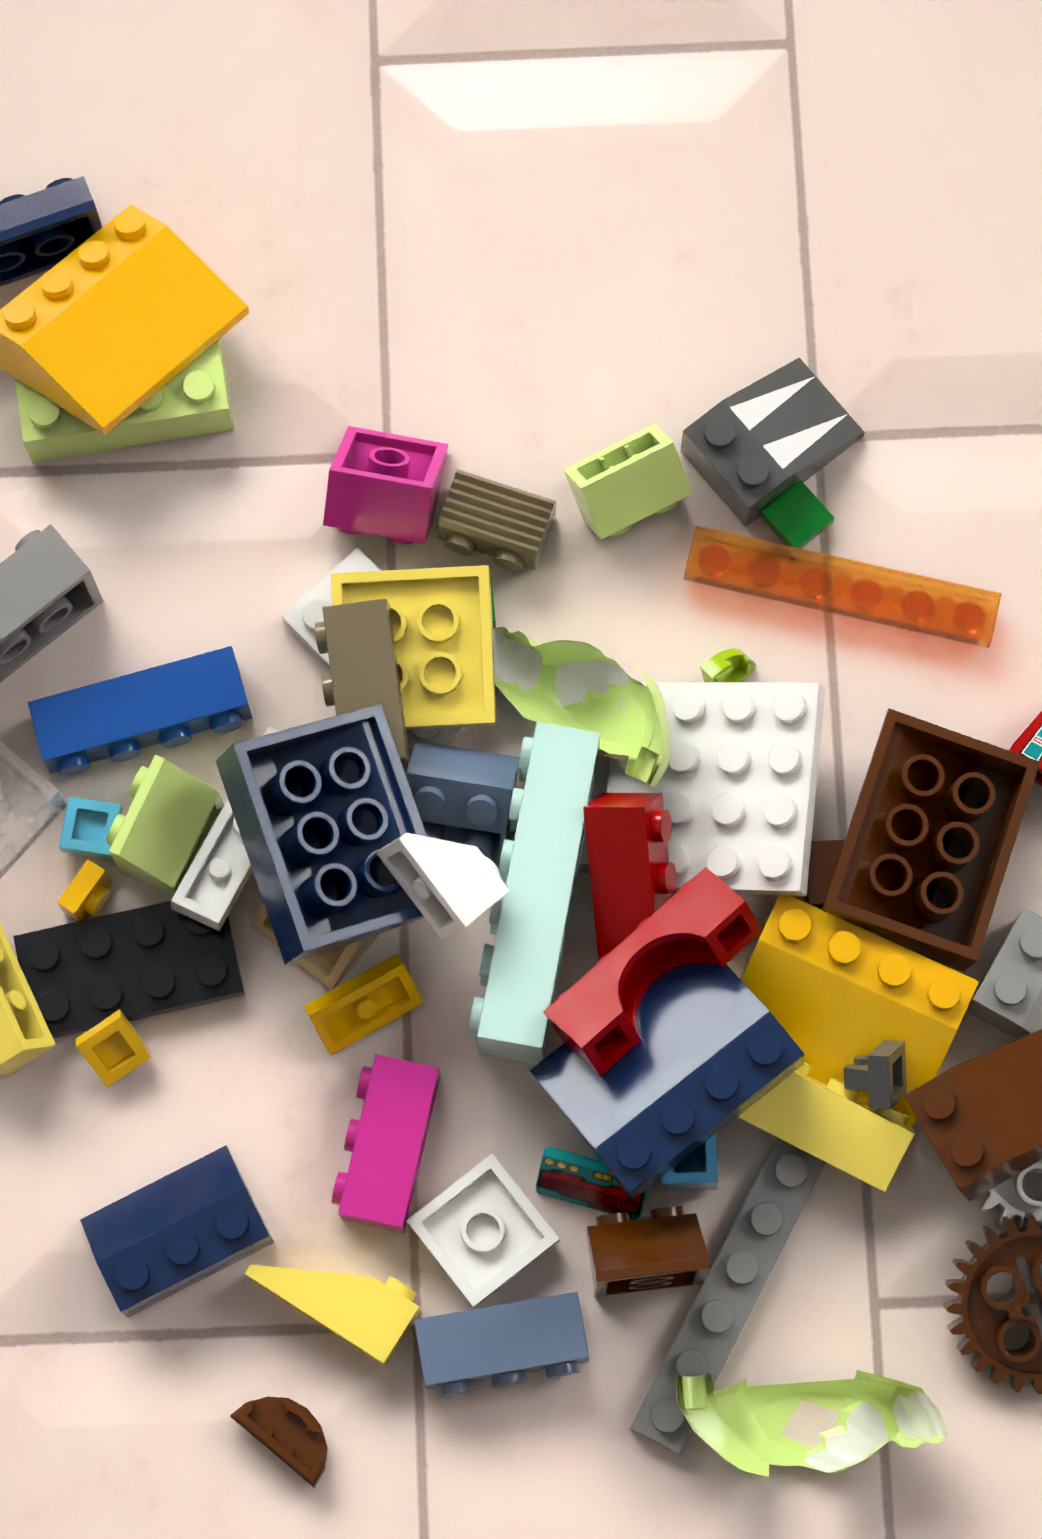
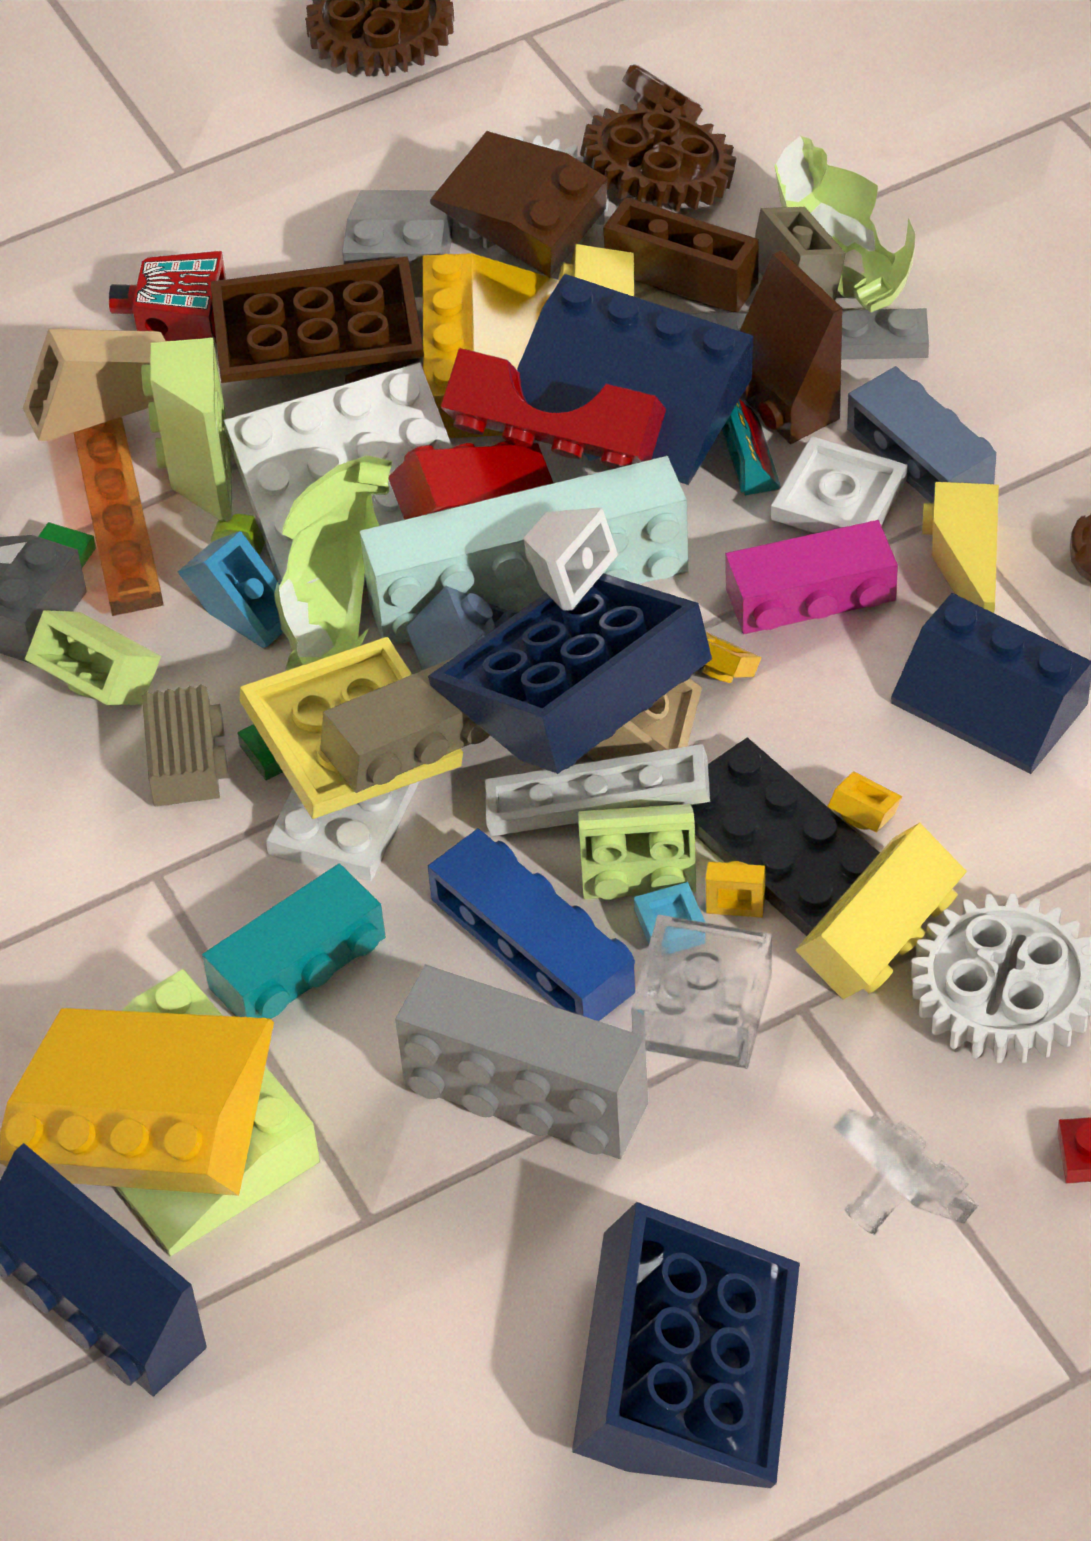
camera: 115 degrees left, 25 degrees down
(227, 520) = (295, 945): none -> teal brick
(384, 485) = (189, 841): dark pink slope -> none
(659, 636) = (236, 588): none -> dark azure slope
(796, 1351) = (803, 241): none -> dark tan brick
(842, 653) = (191, 422): none -> yellowish green slope
(865, 1242) = (685, 254): none -> reddish brown brick
(880, 1074) = (535, 281): dark grey tile -> none
(960, 613) = (87, 379): none -> tan slope

